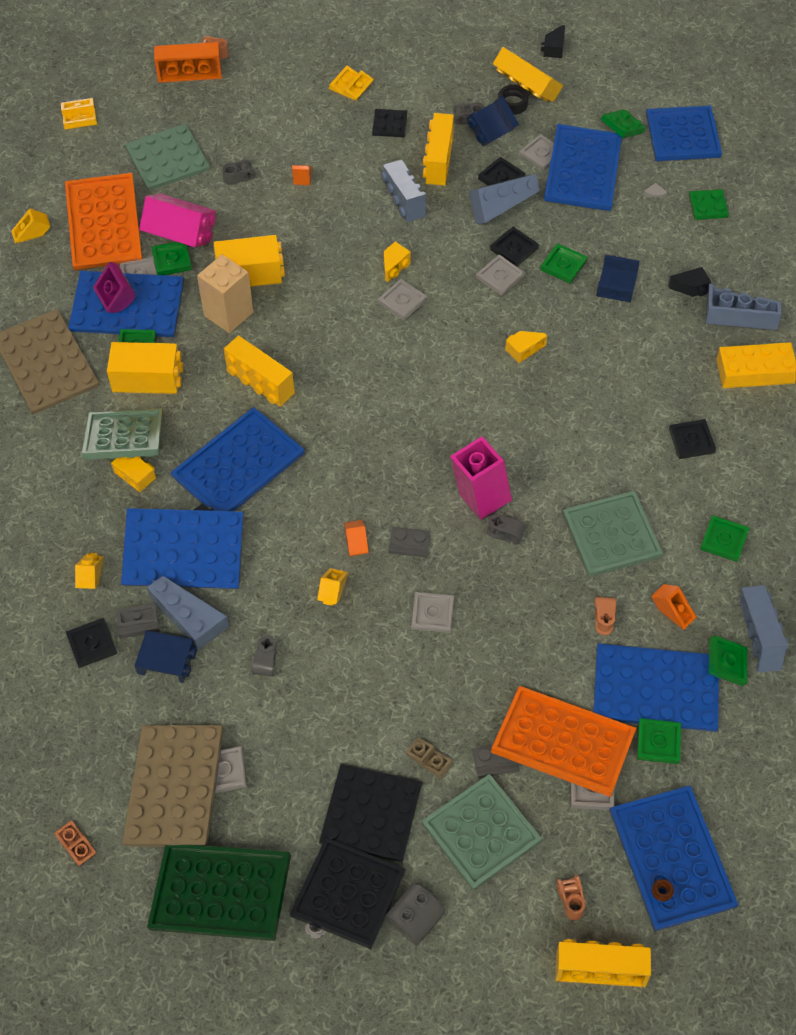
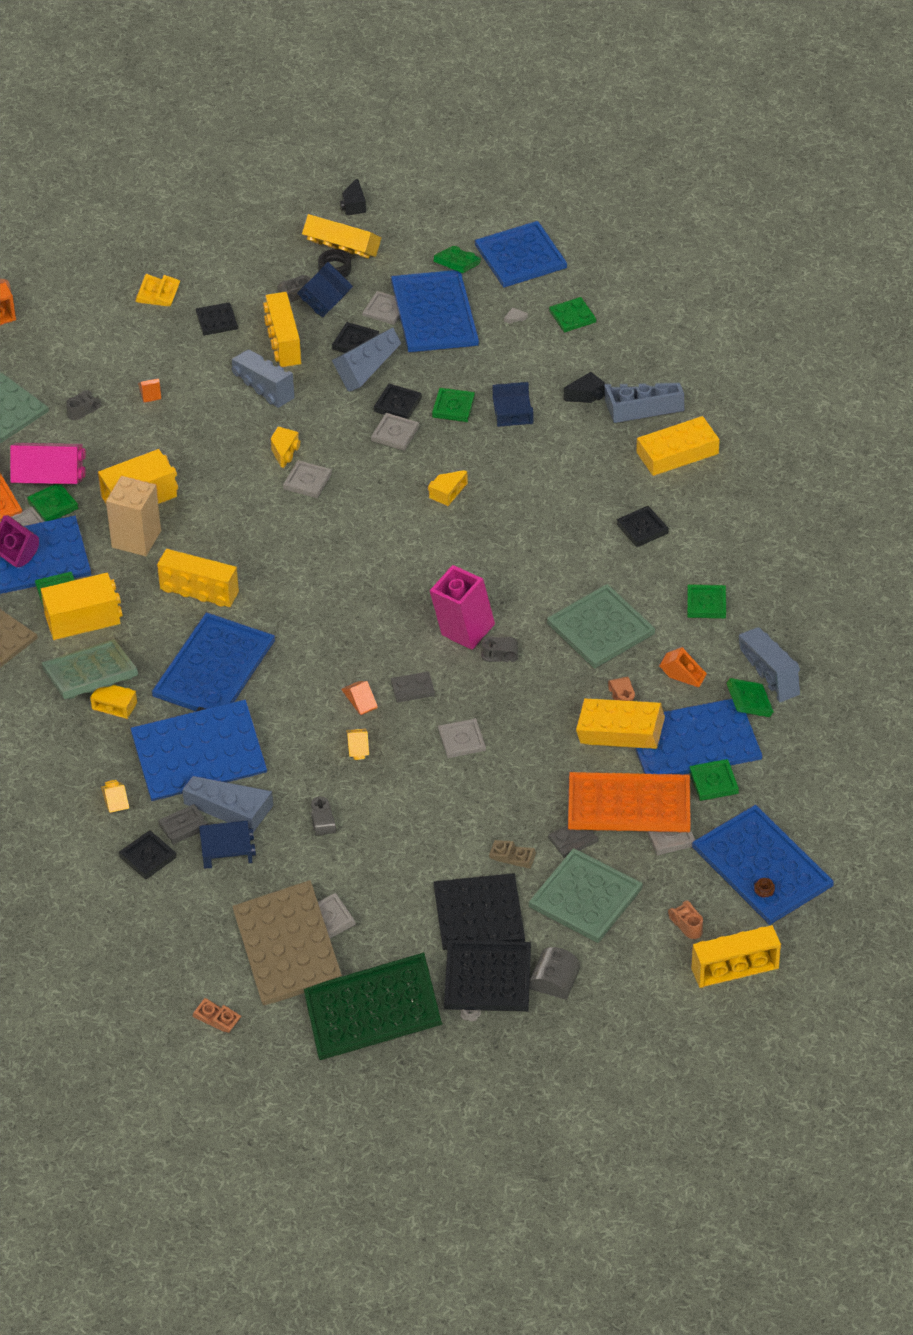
camera: 20 degrees left, 10 degrees down
(588, 650) = (620, 723): none -> yellow brick

